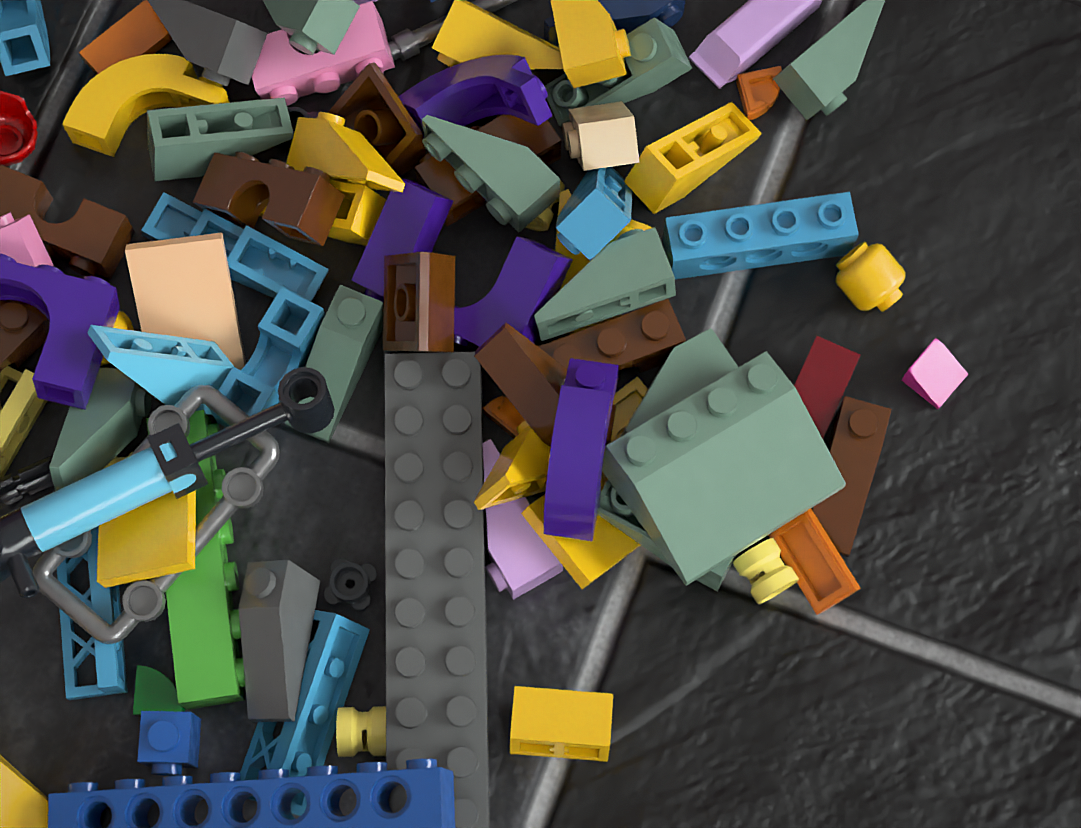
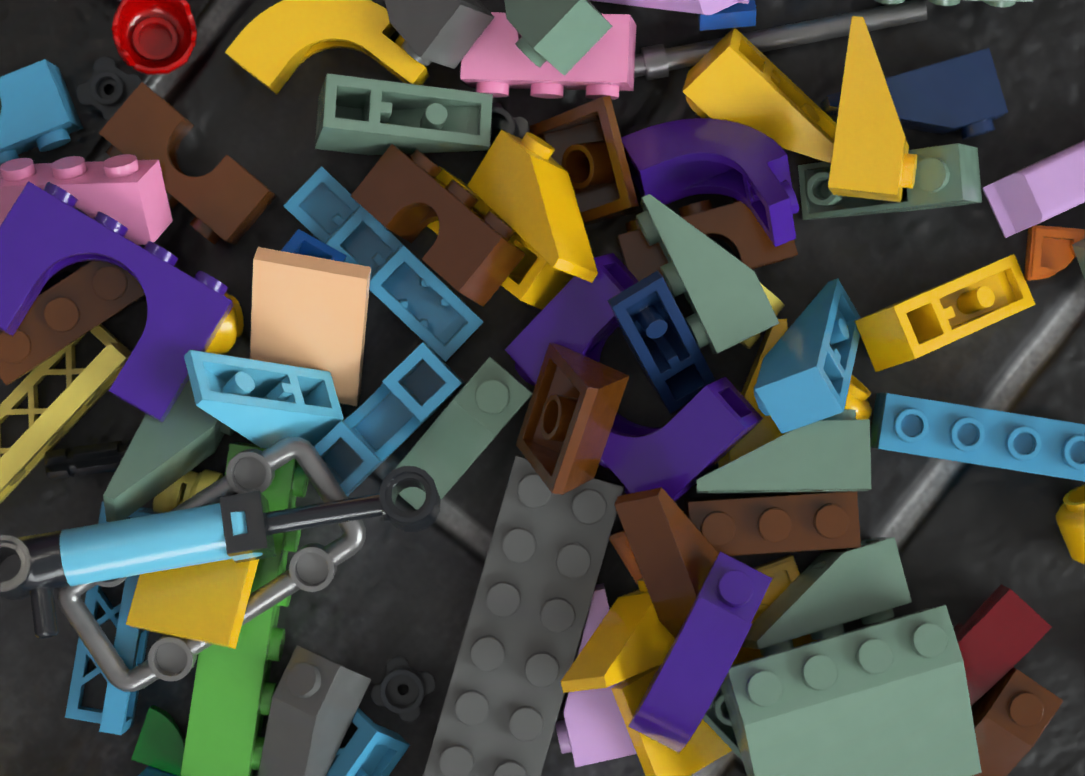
camera: 15 degrees right, 15 degrees up
(466, 221) = (661, 341): none -> dark blue slope
(601, 136) = (846, 267): tan brick -> none

